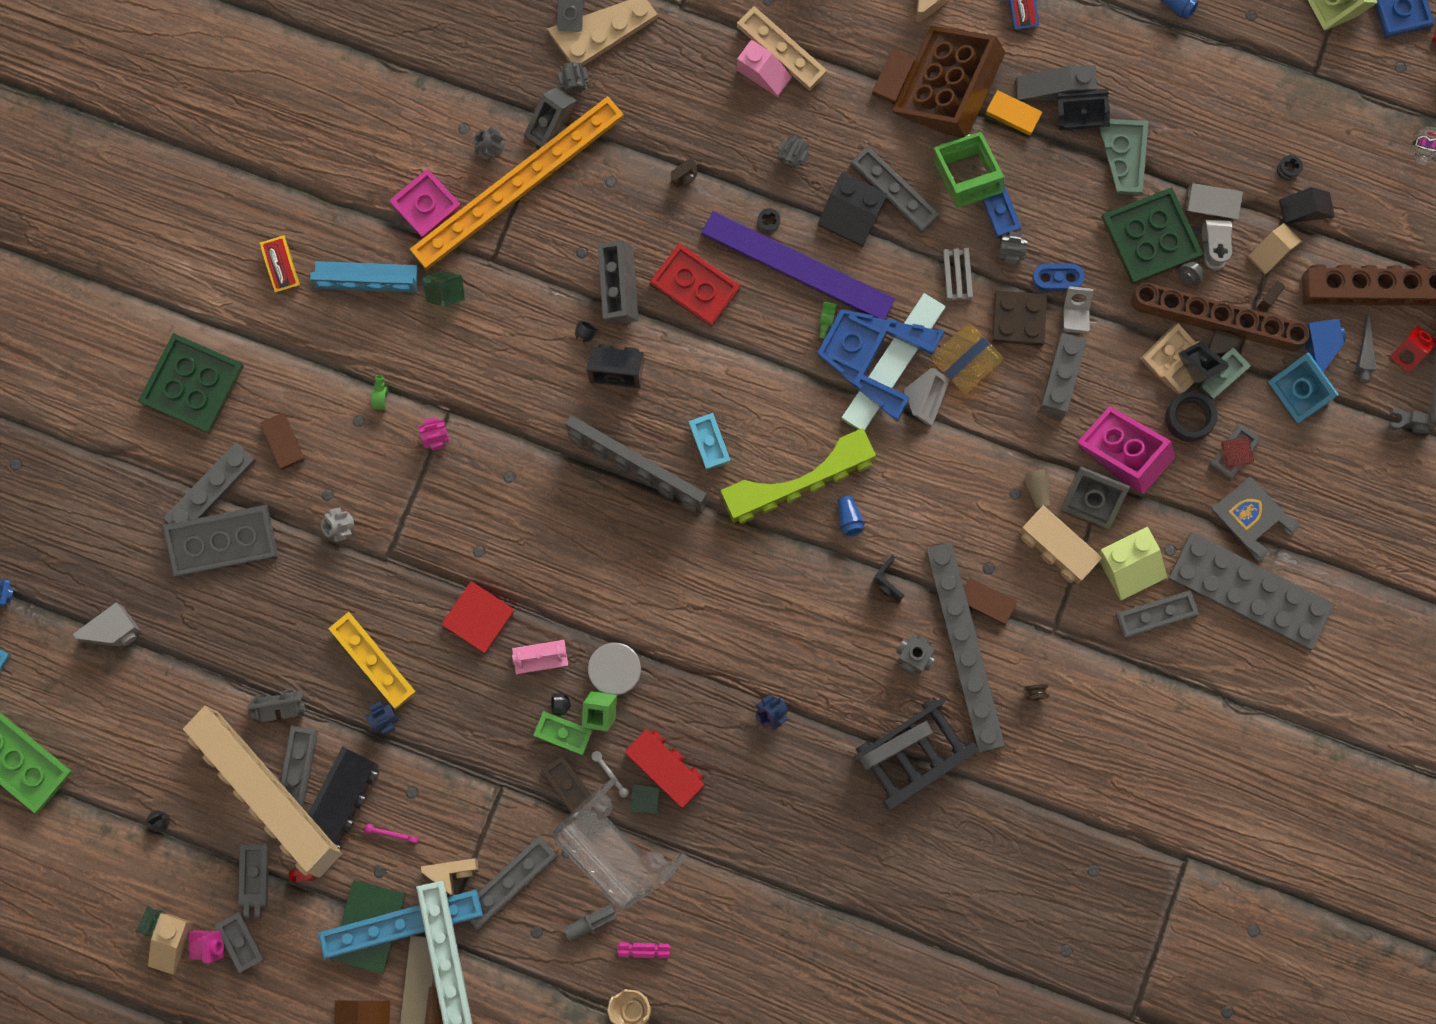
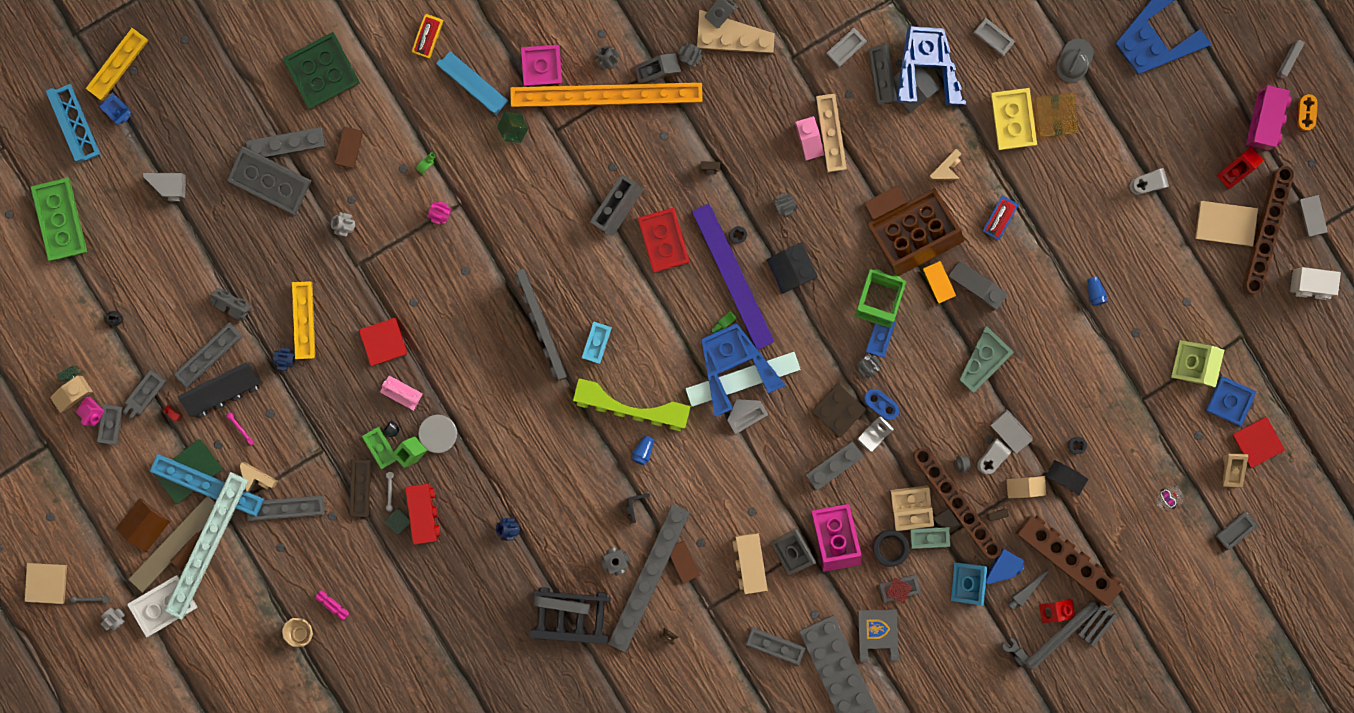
camera: 35 degrees right, 10 degrees up
(262, 792) = (182, 351): tan brick -> none
(585, 330) = (576, 218): black hinge -> none
(590, 923) = (313, 566): dark grey axle -> none
(607, 854) = (352, 538): clear windscreen -> none
(615, 366) = (576, 255): black slope -> none
(900, 193) = (829, 273): dark grey tile -> none
(967, 270) = (815, 368): light grey tile -> none
(967, 358) = (787, 411): clear yellow slope -> none
(1038, 487) = (767, 519): dark tan cone -> none
(1083, 109) = (980, 314): black hinge -> none
(1133, 563) = (784, 606): yellowish green slope -> none
(1152, 235) = (958, 422): dark green plate -> none
(1202, 364) = (920, 523): black slope -> none

